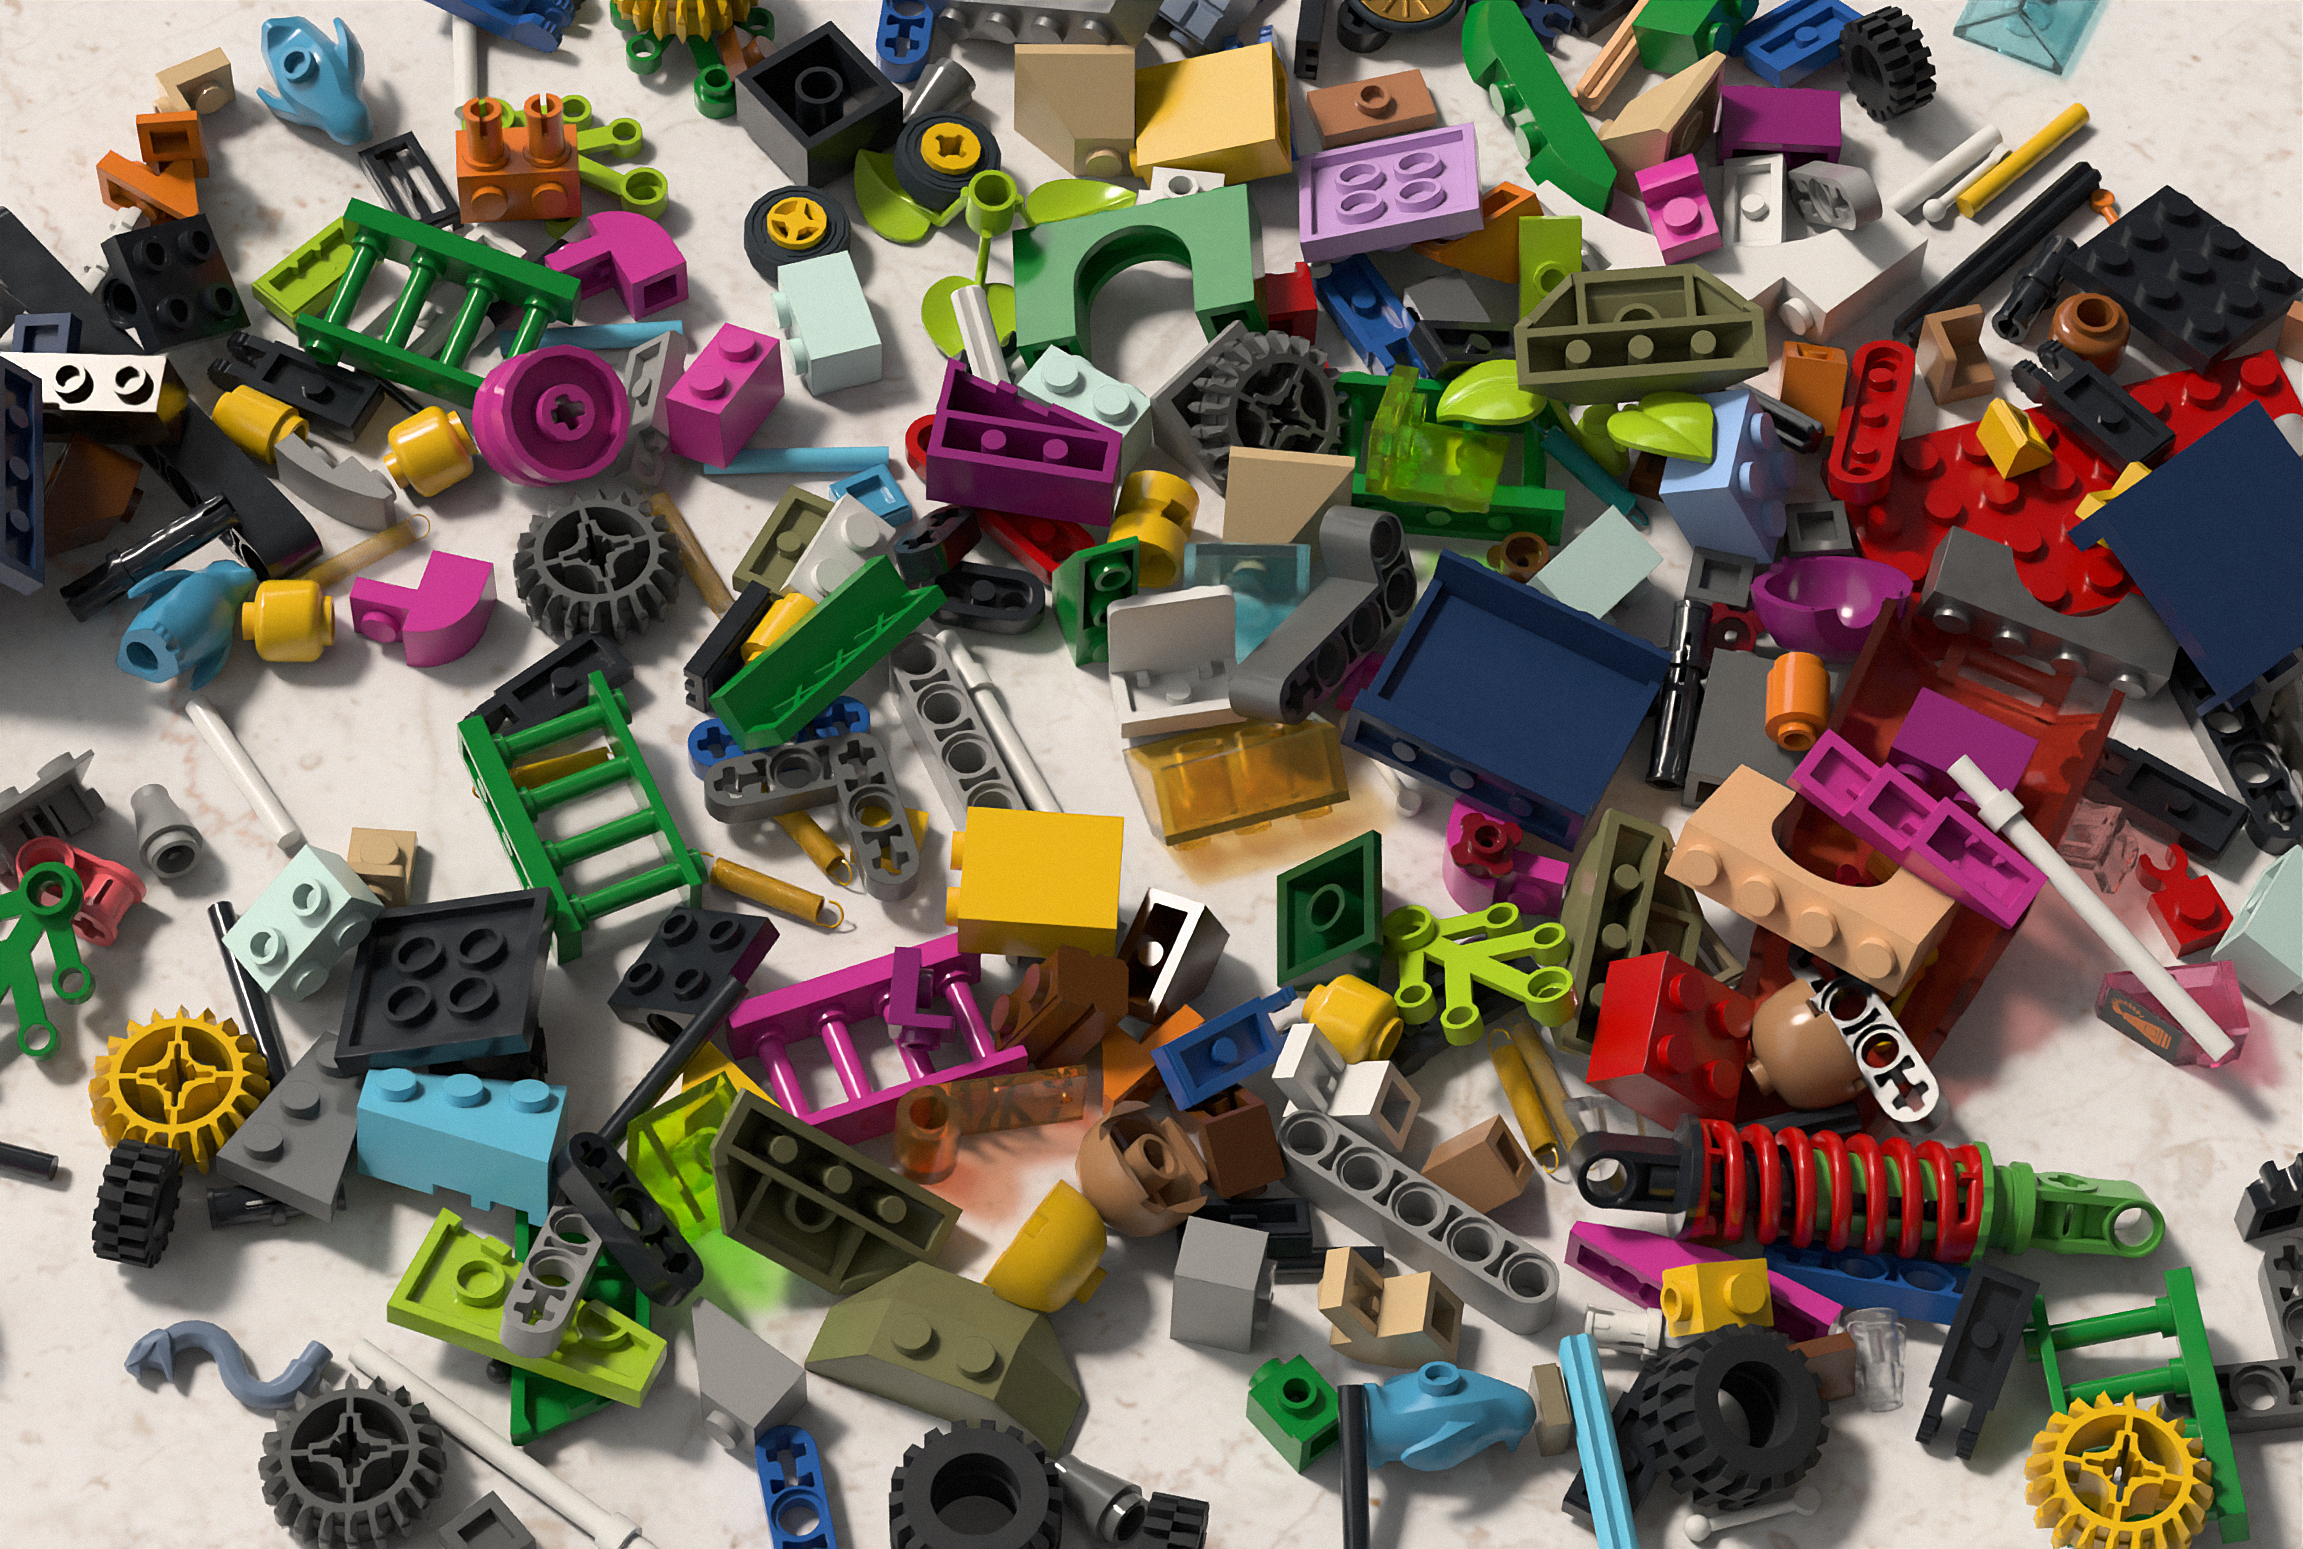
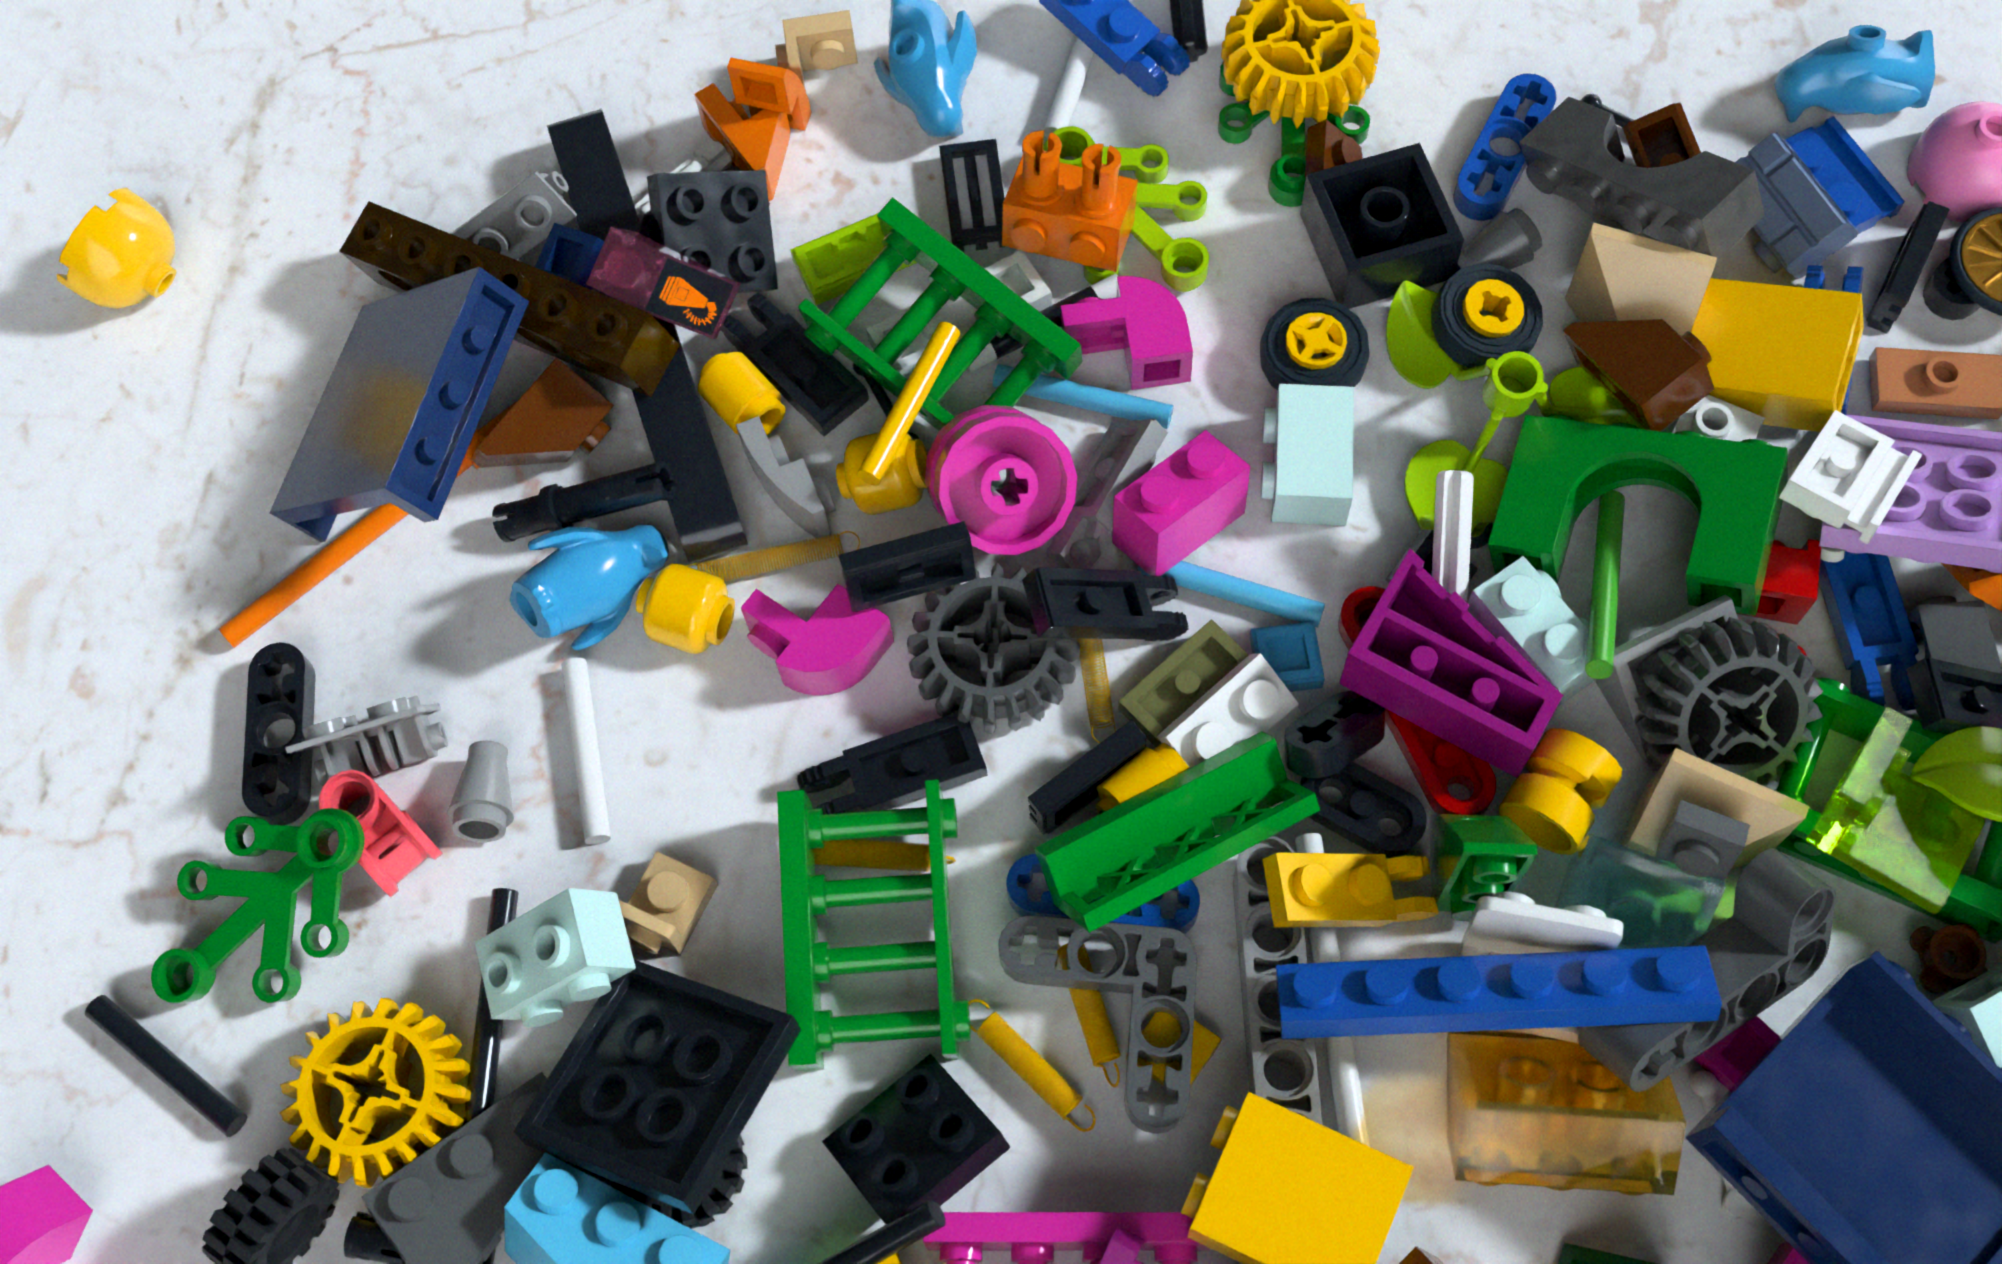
camera: 30 degrees right, 10 degrees up
(161, 327) = (662, 282): none -> slope
(439, 375) = (908, 403): none -> yellow bar
(497, 501) = (908, 566): none -> black tile
(689, 495) = (1102, 604): none -> black hinge
(995, 656) = (1343, 889): none -> yellow hinge
(1101, 158) = (1643, 366): none -> reddish brown slope
(1131, 348) = (1605, 586): none -> bright green bar
(1144, 681) = (1497, 992): none -> blue plate
(1277, 512) = (1702, 841): none -> dark grey plate
(1309, 195) = (1849, 476): none -> white plate

